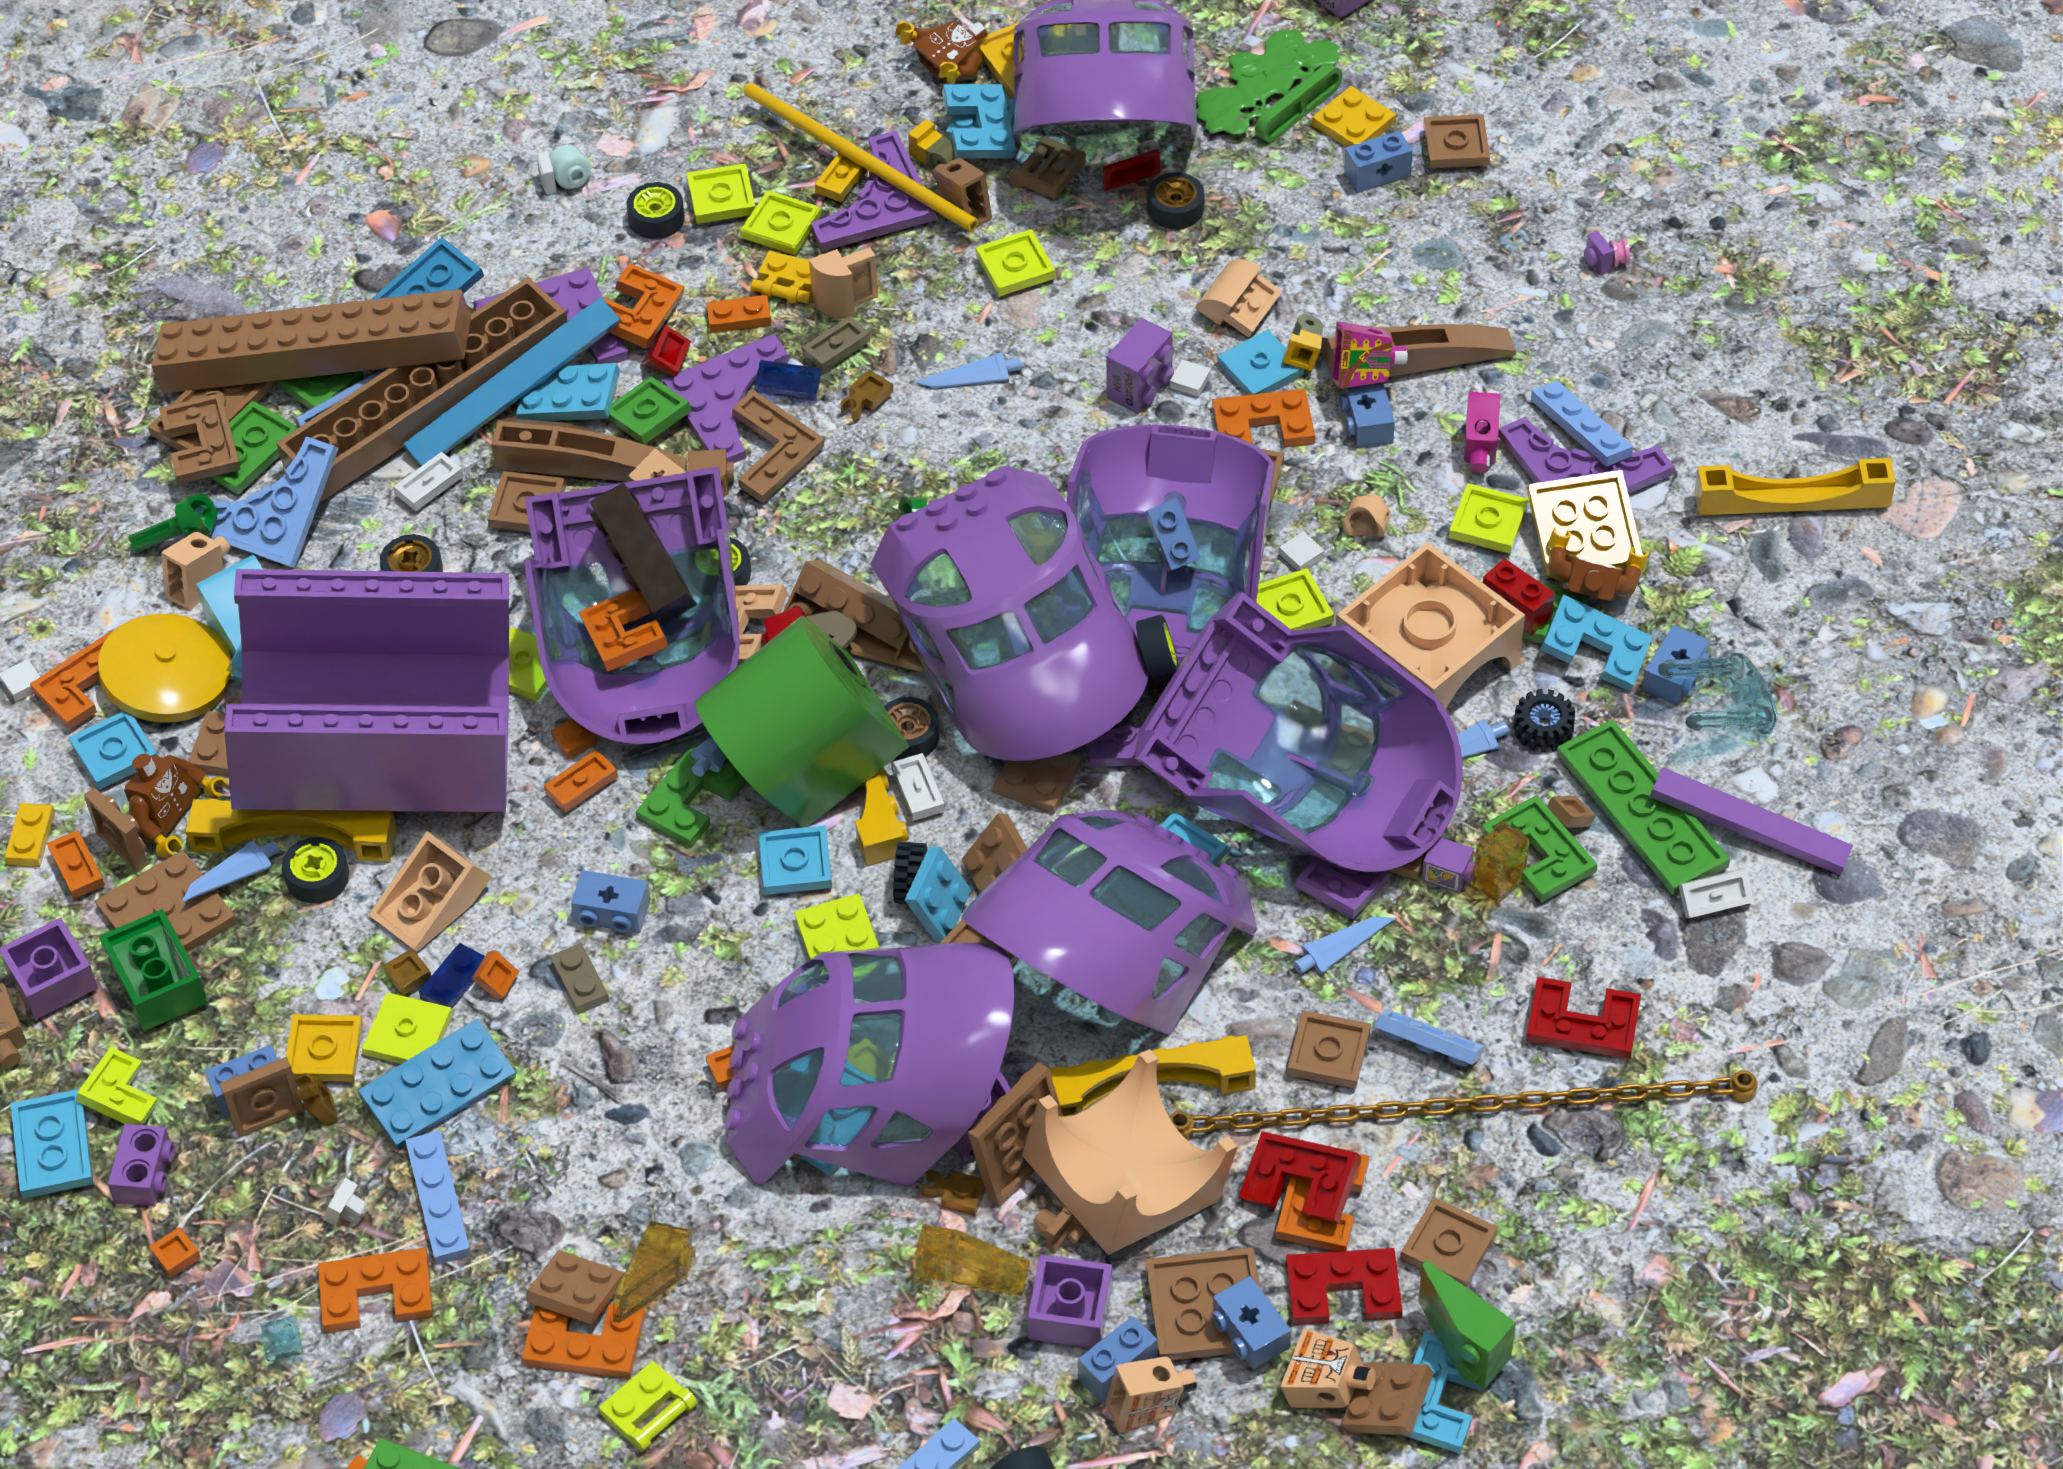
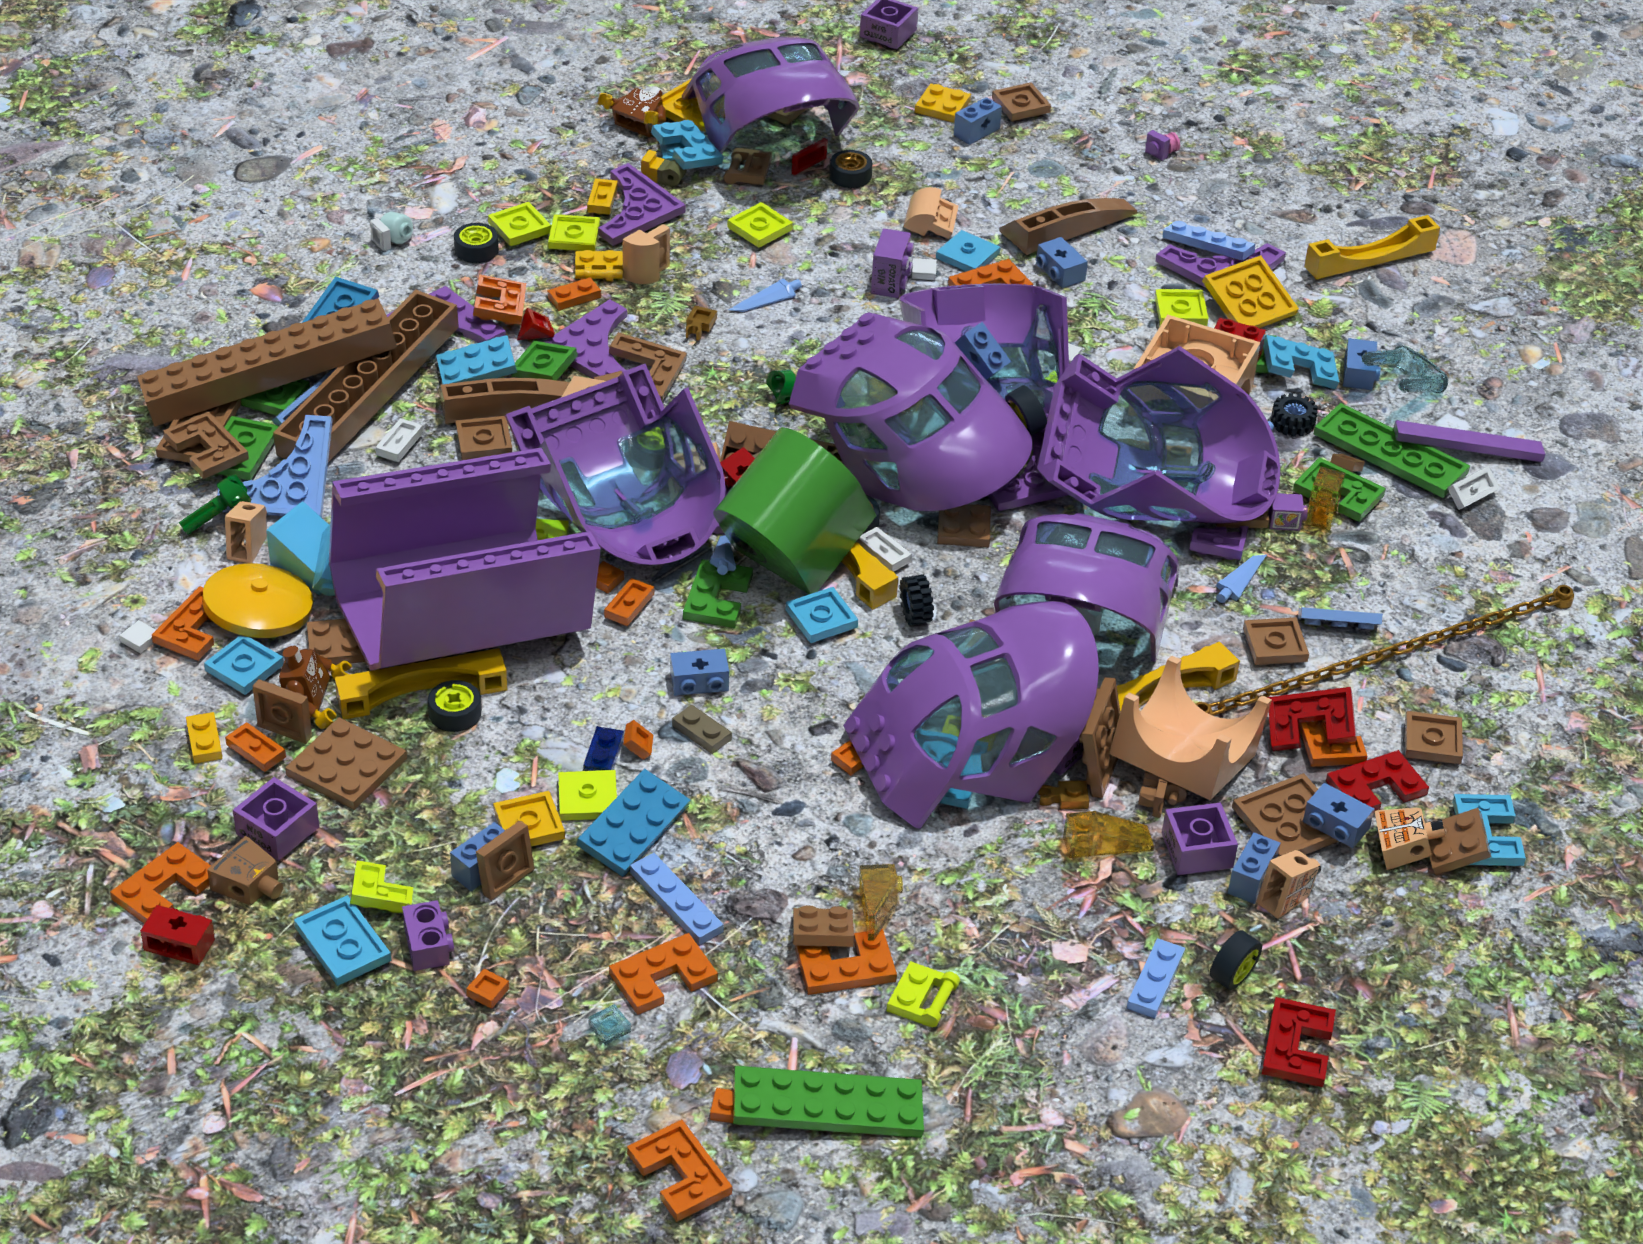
camera: 25 degrees left, 10 degrees down
(153, 969) = (366, 798): green slope -> none
(240, 865) = (393, 715): light blue bar -> none
(316, 1098) = (546, 854): pearl gold plate -> none
(345, 1205) = (609, 920): white tile -> none
(407, 971) = (566, 754): pearl gold plate -> none
(429, 892) = (555, 696): light nougat slope -> none
(513, 382) = (433, 363): dark azure tile -> none
(611, 641) = (602, 494): orange plate -> none
(640, 548) = (610, 435): dark brown brick -> none
(788, 380) = (638, 323): clear blue plate -> none
(836, 343) = (659, 296): dark tan plate -> none
(836, 926) = (872, 651): neon yellow plate -> none
(861, 157) = (613, 181): yellow piece -> none
(937, 894) = (944, 603): medium azure plate -> none
(964, 187) = (700, 188): medium nougat torso -> none
(993, 851) = (975, 578): medium nougat plate -> none
(1272, 74) = (874, 83): bright green plant -> none
(1304, 343) = (992, 229): yellow leg -> none
(1363, 355) = (1048, 222): torso -> none
(1367, 516) = (1101, 321): light nougat piece -> none
(1468, 1327) = (1487, 773): bright green slope -> none
(1481, 437) = (1147, 254): dark pink torso -> none
(1590, 576) = (1278, 321): dark orange torso -> none
(1604, 1035) = (1454, 585): red plate -> none

